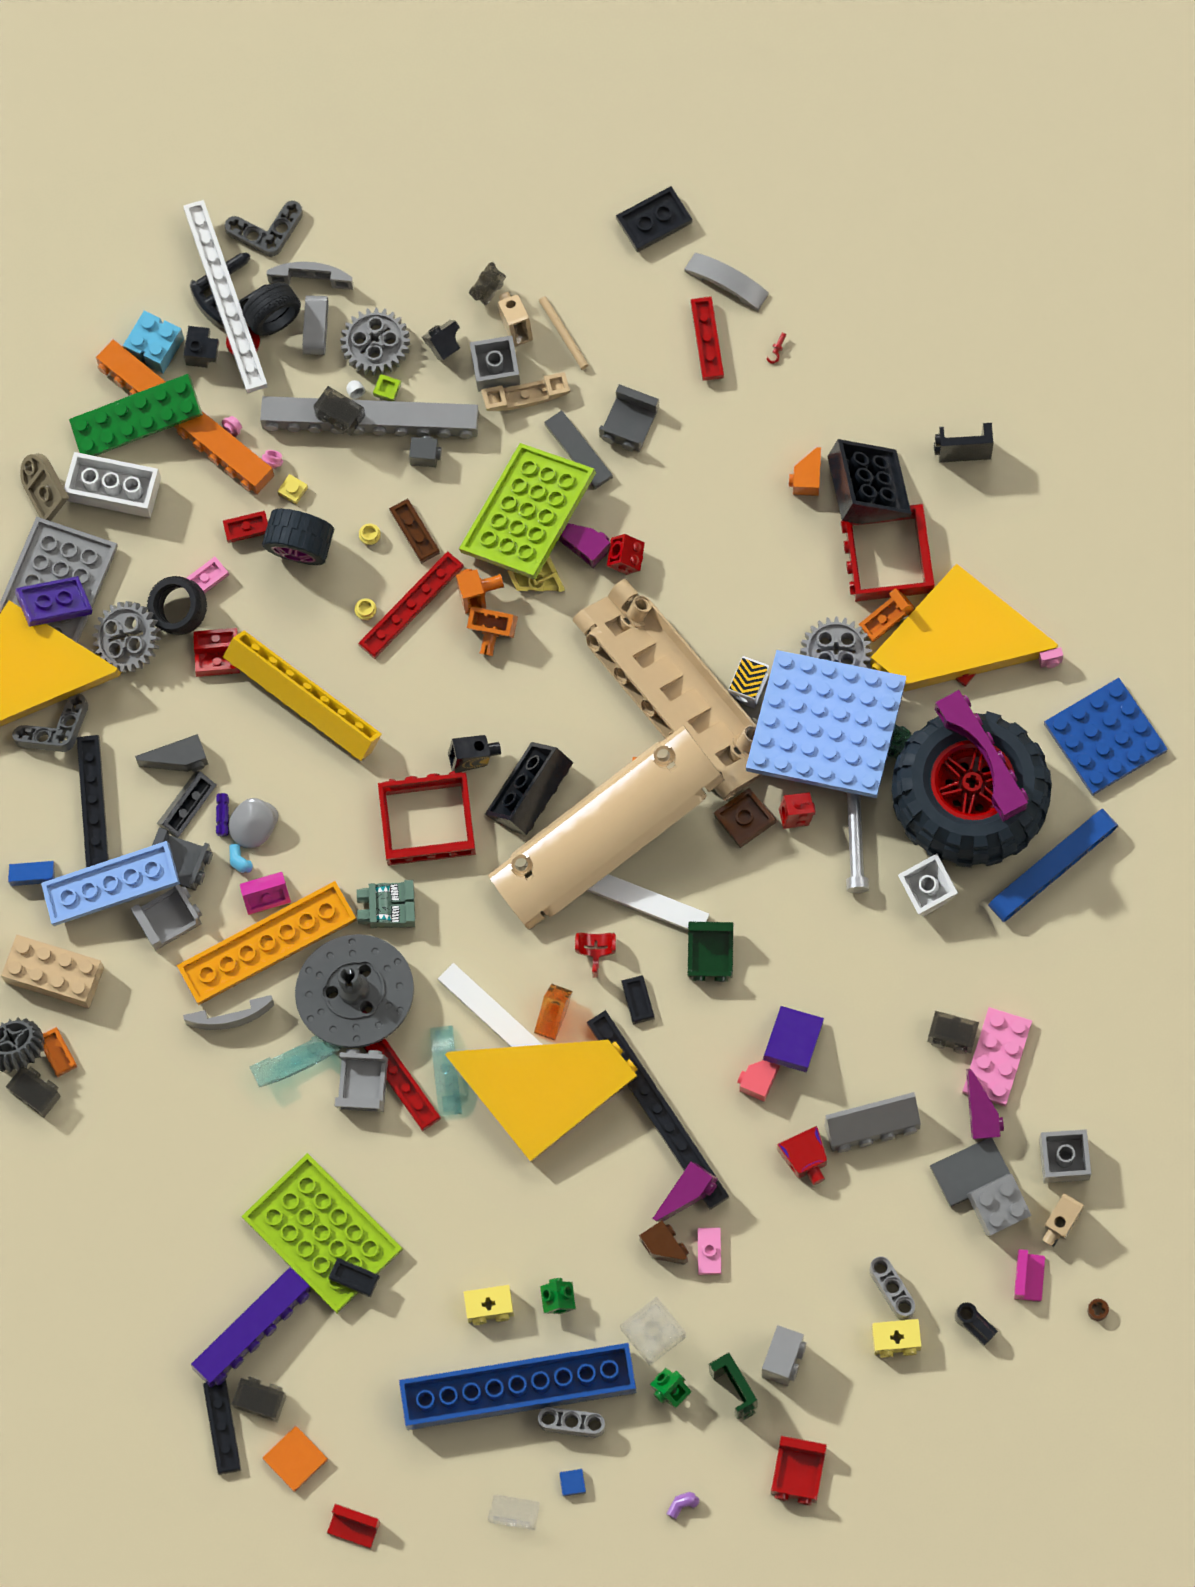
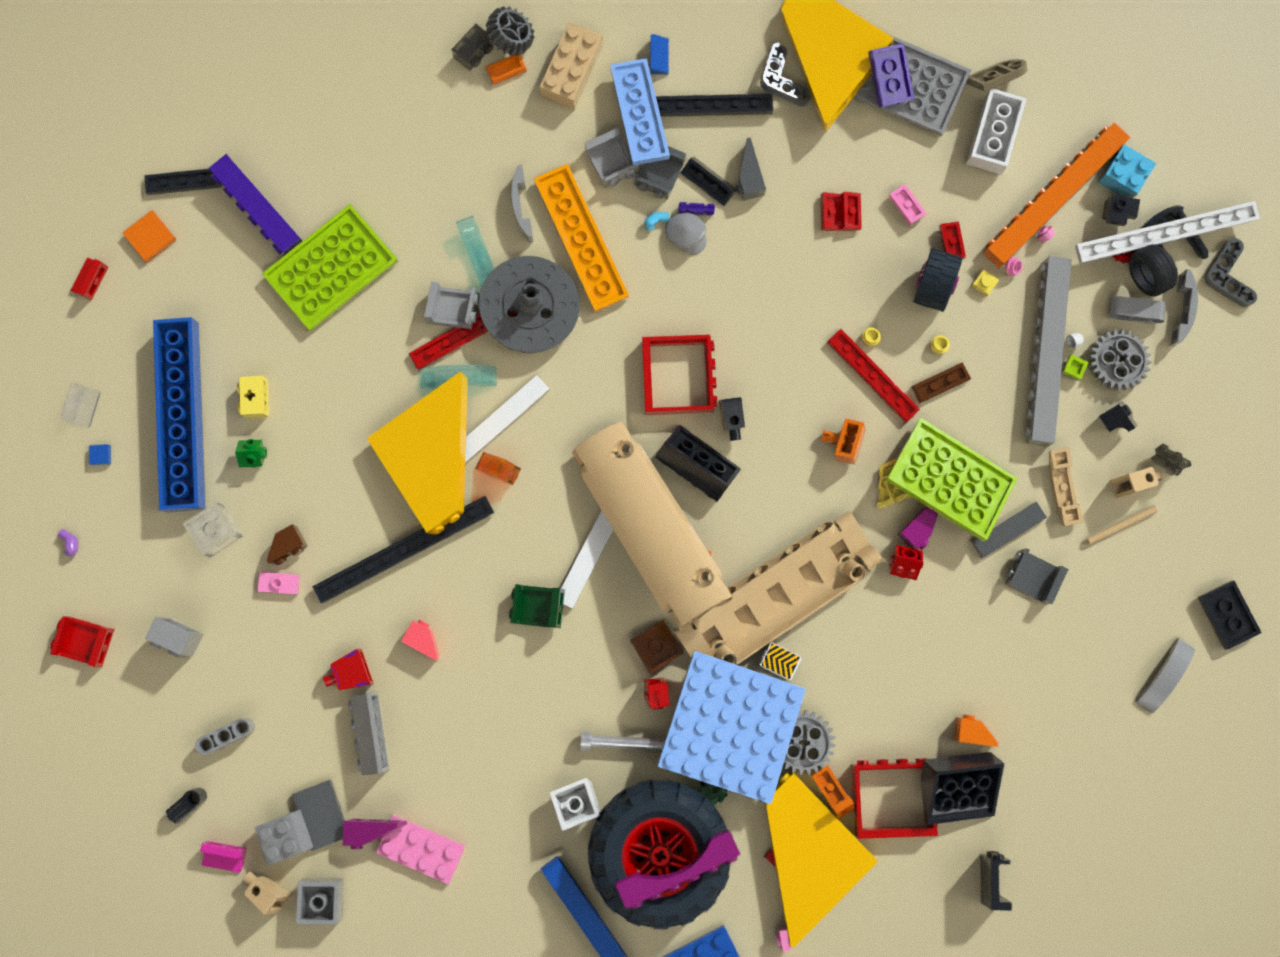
camera: 85 degrees right, 10 degrees up
(123, 617) = (872, 136): light grey gear -> none
(136, 416) = (1057, 153): green plate -> none
(197, 608) = (882, 193): black tyre -> none
(259, 1399) = (198, 209): clear smoke brick -> none
(265, 893) = (625, 238): dark pink panel -> none
(302, 695) = (794, 276): yellow brick -> none
(338, 411) = (1053, 321): clear smoke brick -> none
(354, 1277) = (286, 289): black tile -> none
(389, 905) = (604, 331): sand green hips -> none
(424, 451) = (1013, 395): dark grey brick -> none
(473, 588) = (881, 426): orange brick -> none
(495, 363) = (1094, 461): light grey brick -> none
(562, 1415) = (139, 465): light grey beam -> none
(588, 940) = (560, 503): red helmet -> none
(637, 999) = (503, 541): black tile -> none
(670, 1387) = (162, 540): green brick -> none
(690, 1188) = (327, 572): magenta slope -> none
(707, 338) = (1110, 652): red plate -> none
(727, 1365) = (171, 588): dark green panel -> none
(777, 347) = (1099, 716): red hand -> none
(793, 1039) = (450, 671): dark purple tile -> none
(906, 1330) = (185, 725): light yellow brick -> none
(953, 1032) = (444, 812): clear smoke brick -> none
(1105, 1308) = (181, 919): reddish brown bush -> none

